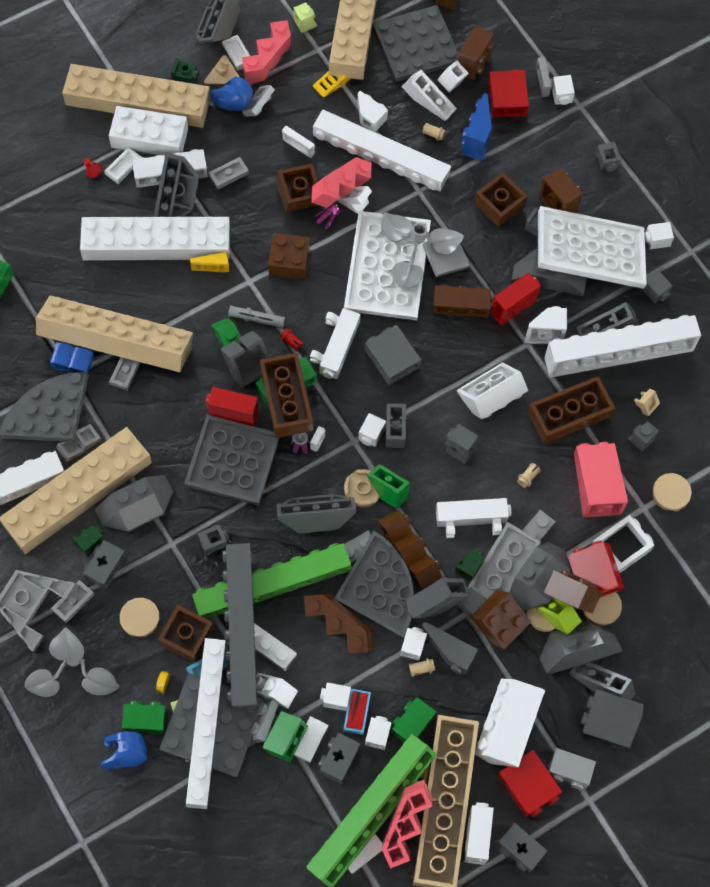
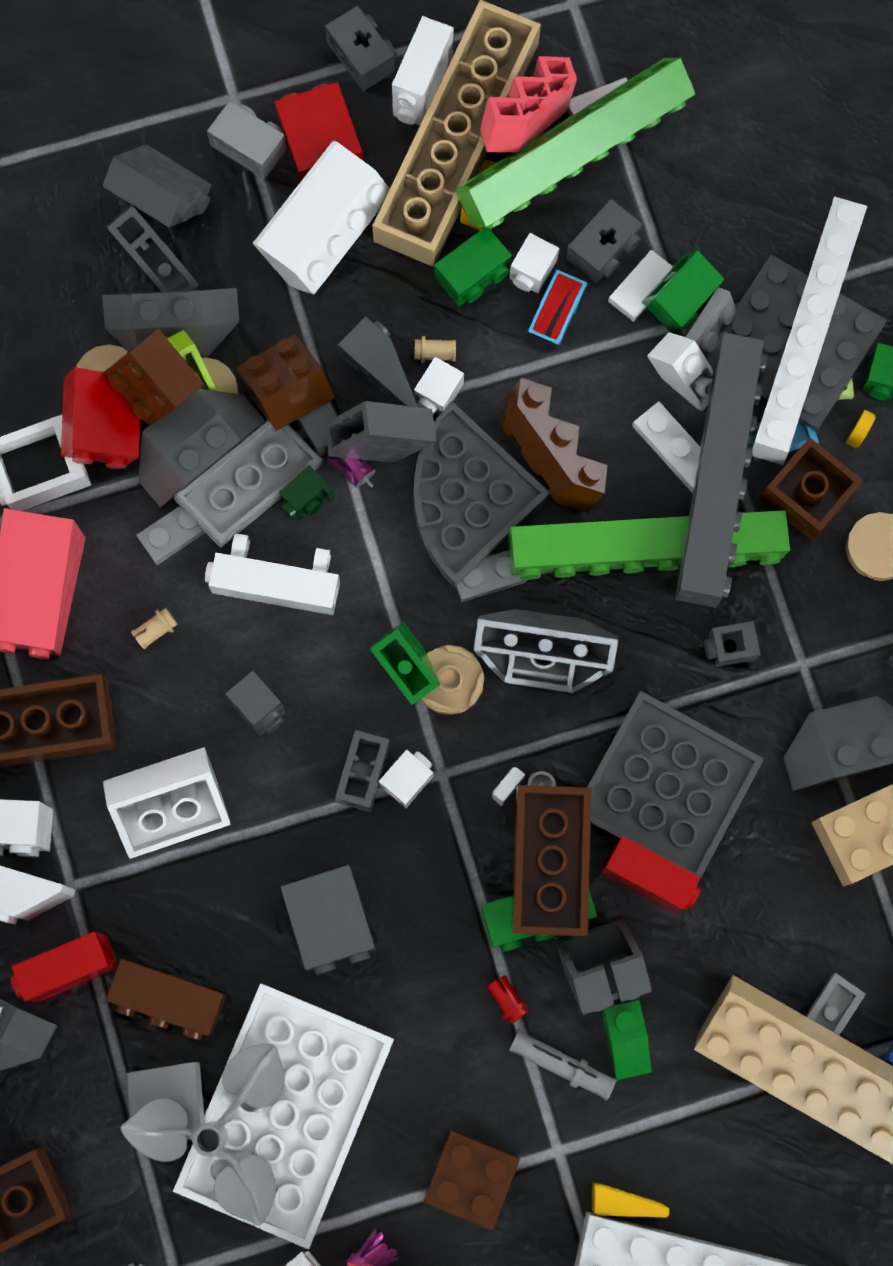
camera: 165 degrees left, 10 degrees up
(335, 696) = (586, 335): white brick -> none
(339, 344) = (420, 966): white brick -> none
(411, 548) = (399, 544): reddish brown brick -> none

